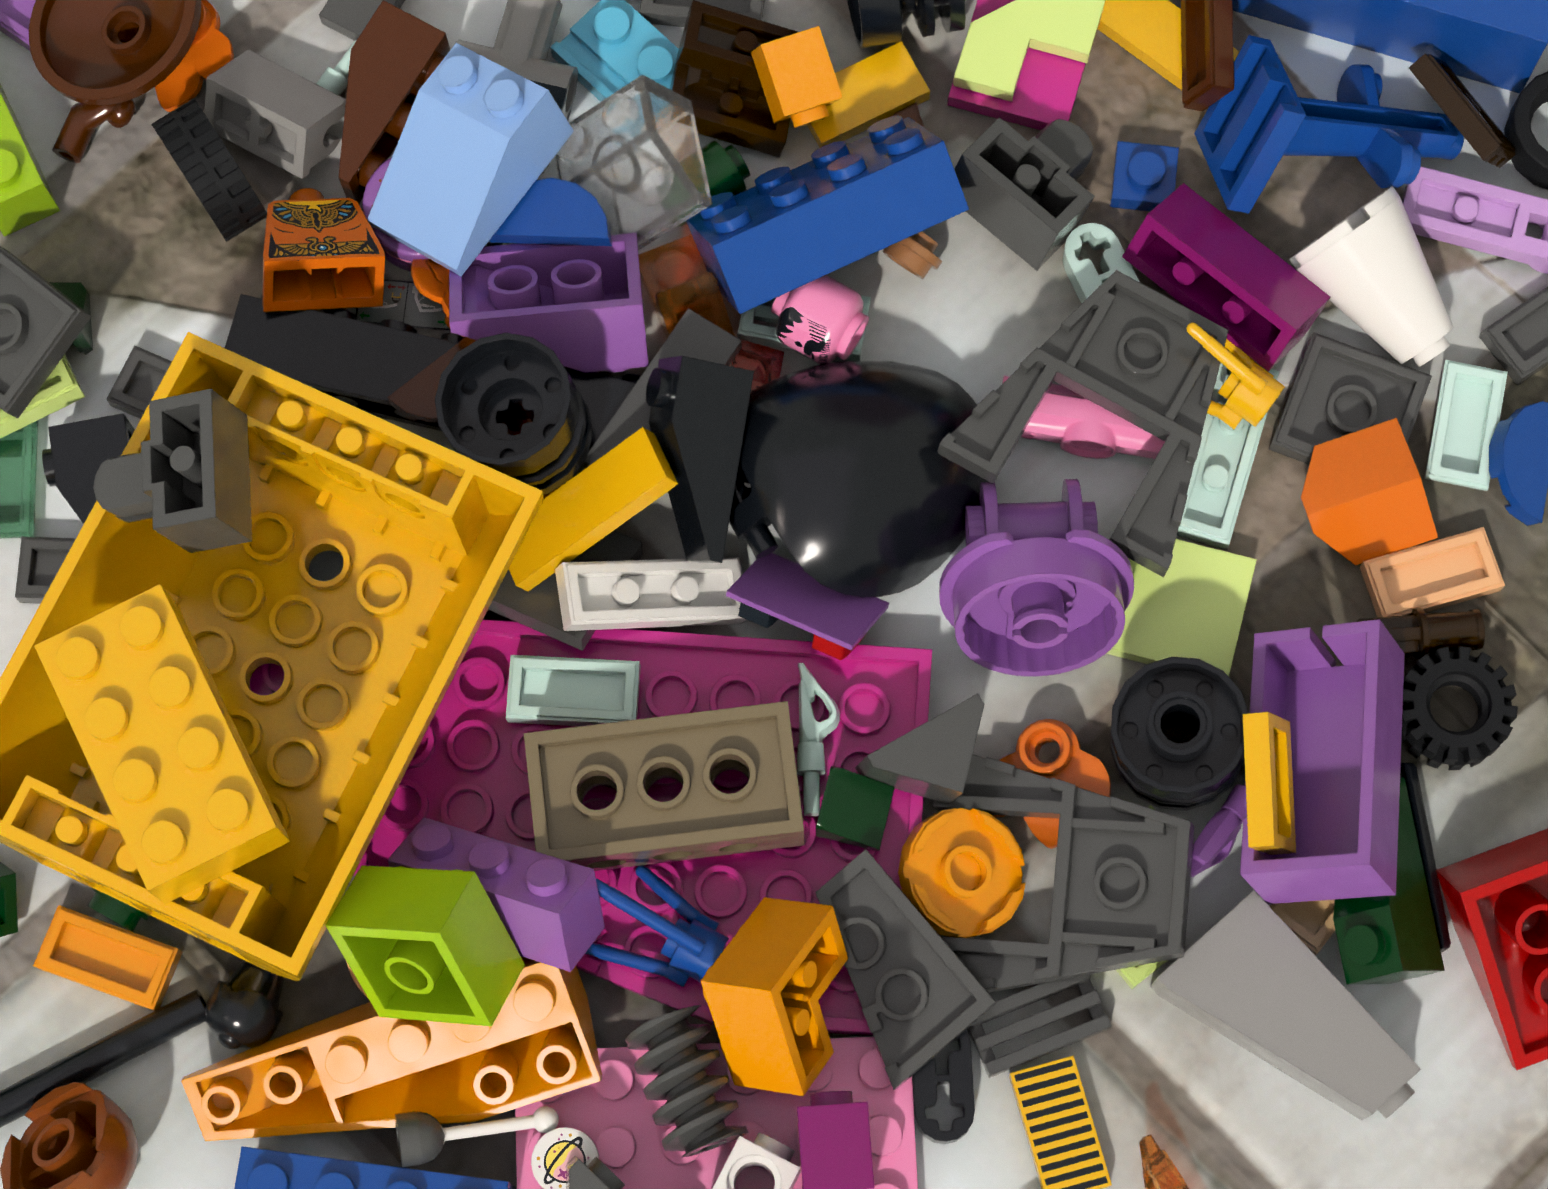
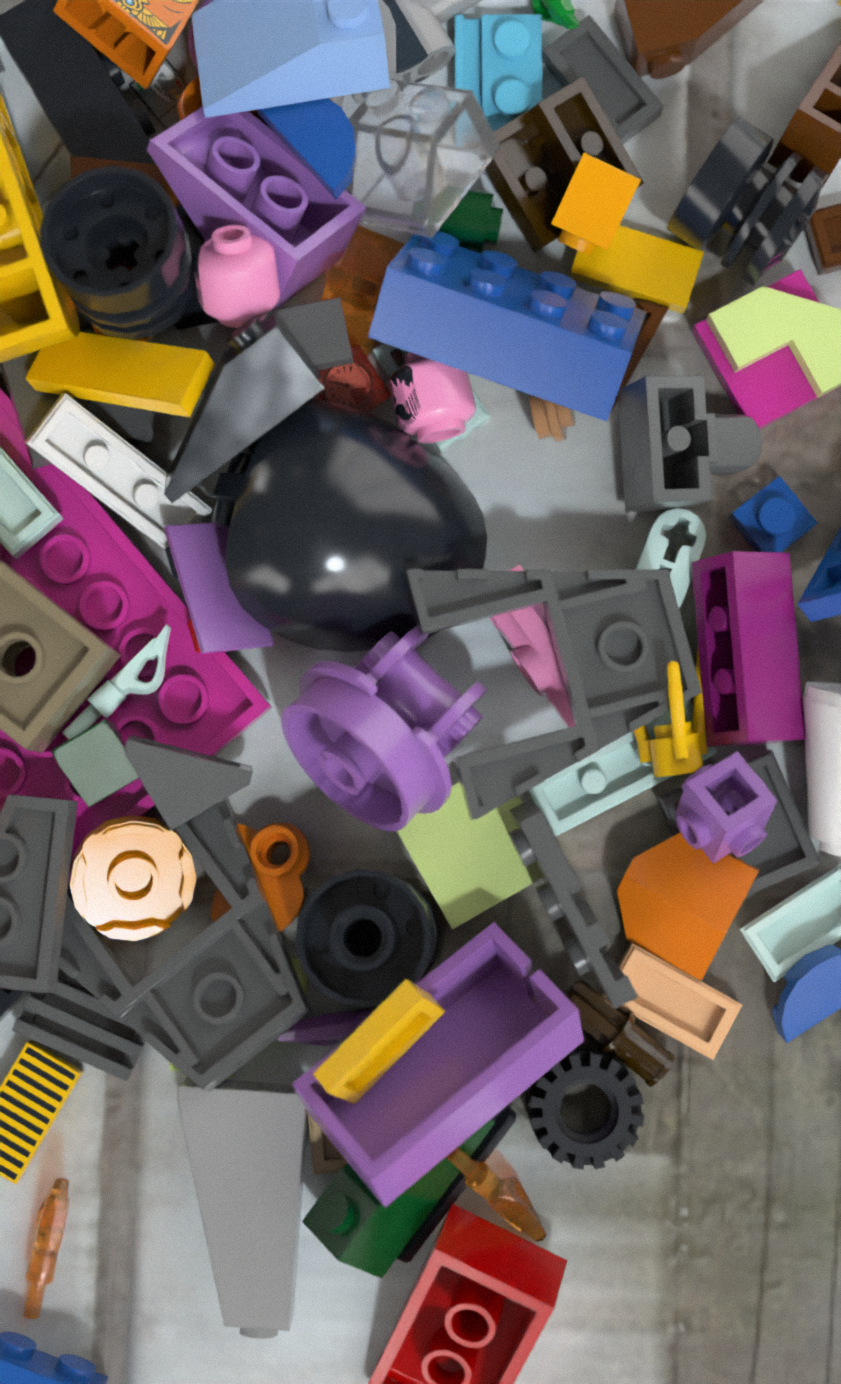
camera: 45 degrees right, 10 degrees up
(607, 358) = (236, 276): none -> bright pink head
(1313, 574) = (560, 897): none -> dark grey wing
(1328, 393) = (724, 808): none -> medium lavender brick
(1460, 827) = (503, 1195): none -> clear orange hand

